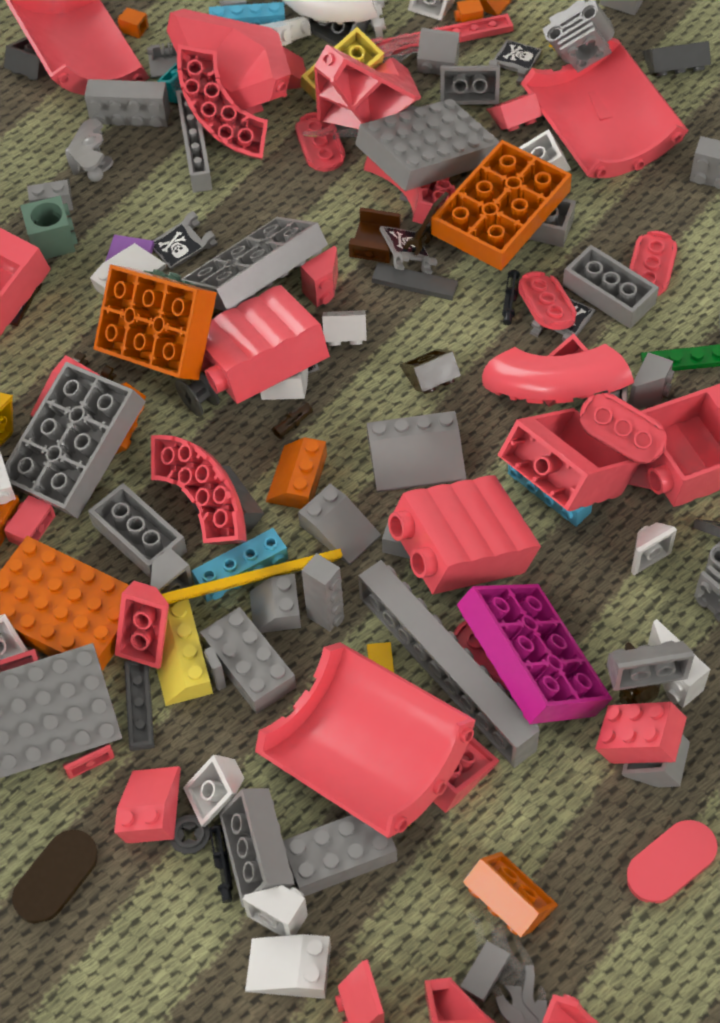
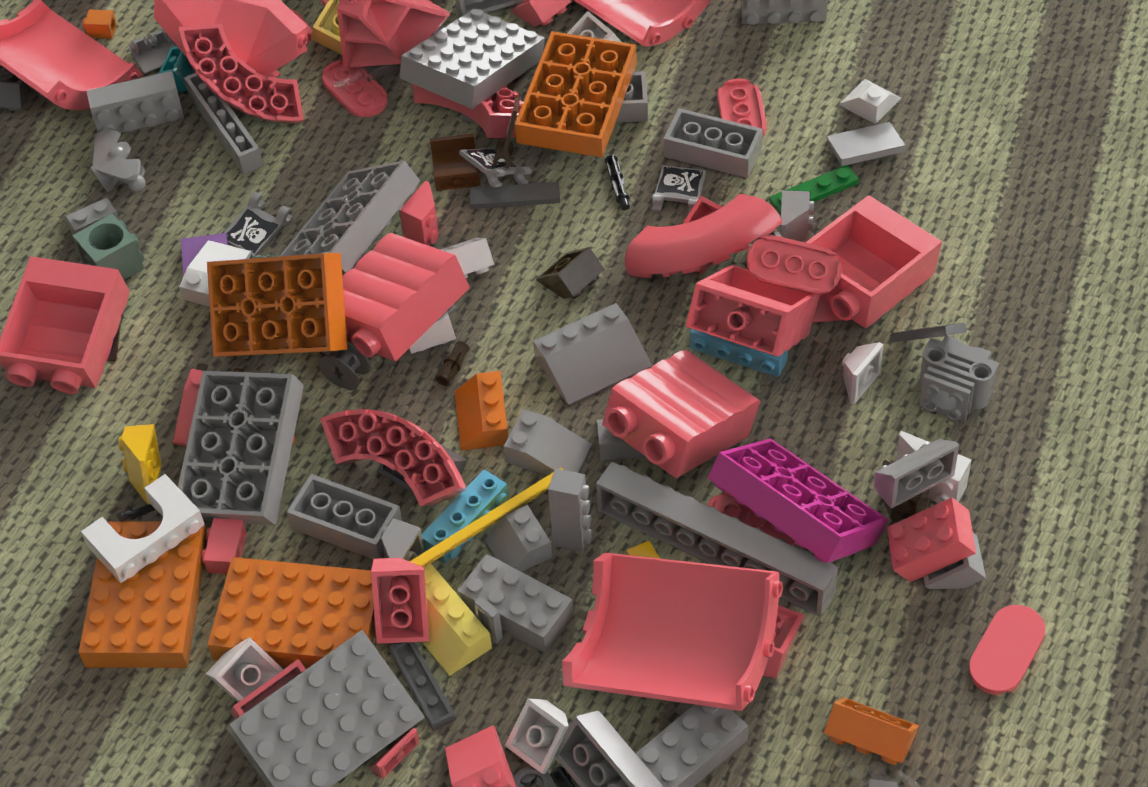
camera: 20 degrees left, 5 degrees down
(547, 301) = (656, 174): coral tile -> none

